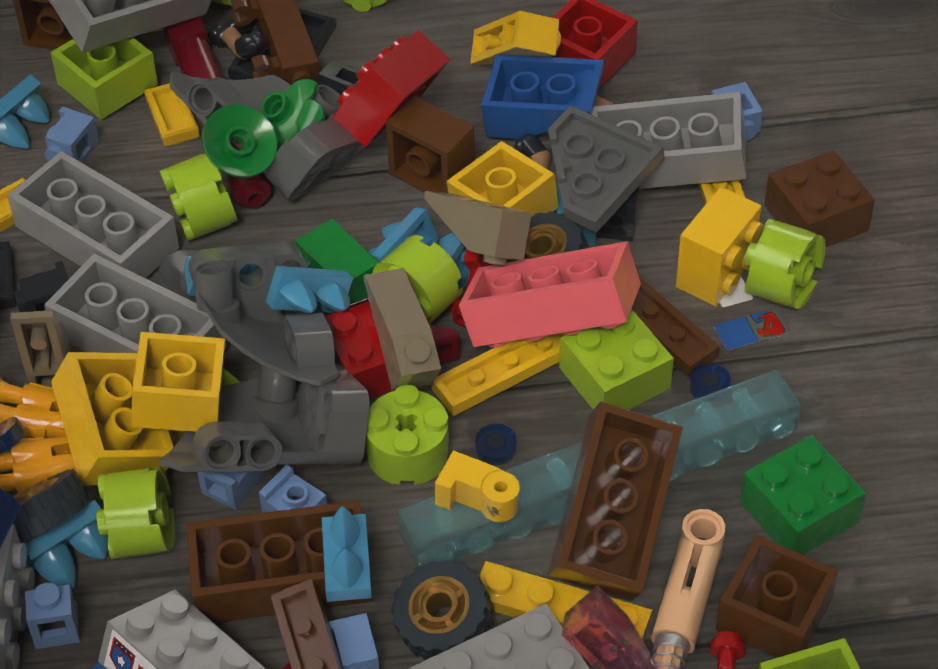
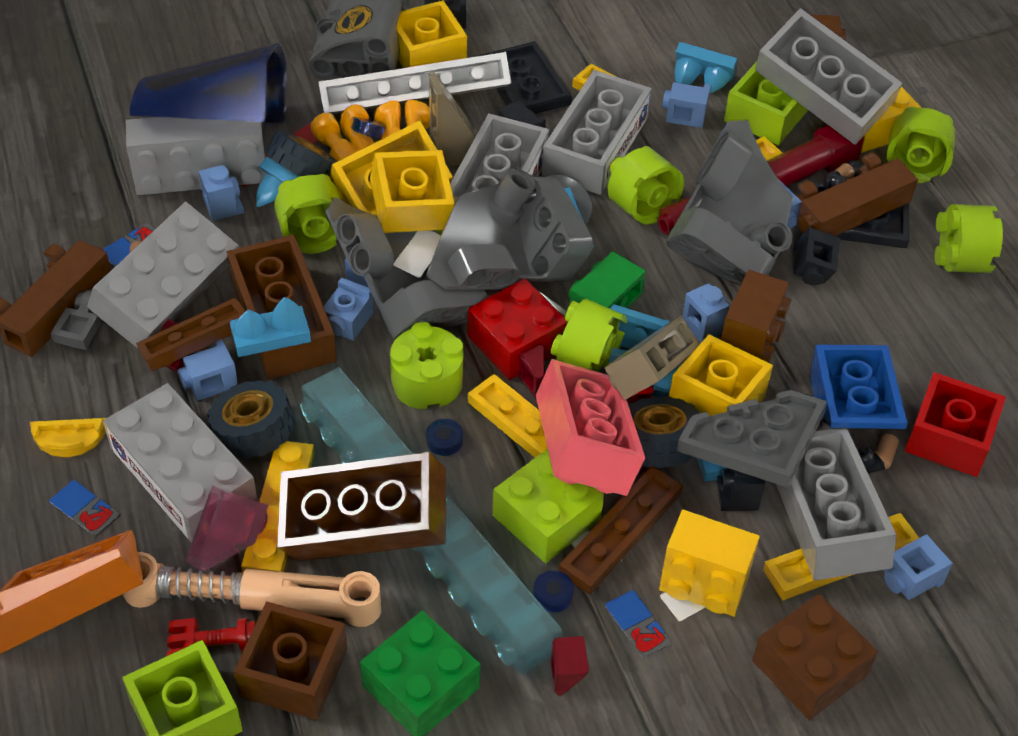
camera: 75 degrees right, 0 degrees up
(247, 128) = (681, 163): green dish -> none
(249, 405) = (418, 253): none -> white sticker
(292, 109) = (752, 214): green plate -> none
(309, 290) = (550, 268): dark azure tile -> none
(388, 84) = (816, 275): red brick -> none
(392, 179) = (709, 305): none -> medium blue brick
(402, 329) = (509, 321): dark tan slope -> none
(477, 486) = (363, 399): yellow leg -> none
(516, 35) = (911, 357): yellow slope -> none
(784, 264) = (706, 626): lime brick -> none
(806, 377) = (568, 662): none -> dark red slope

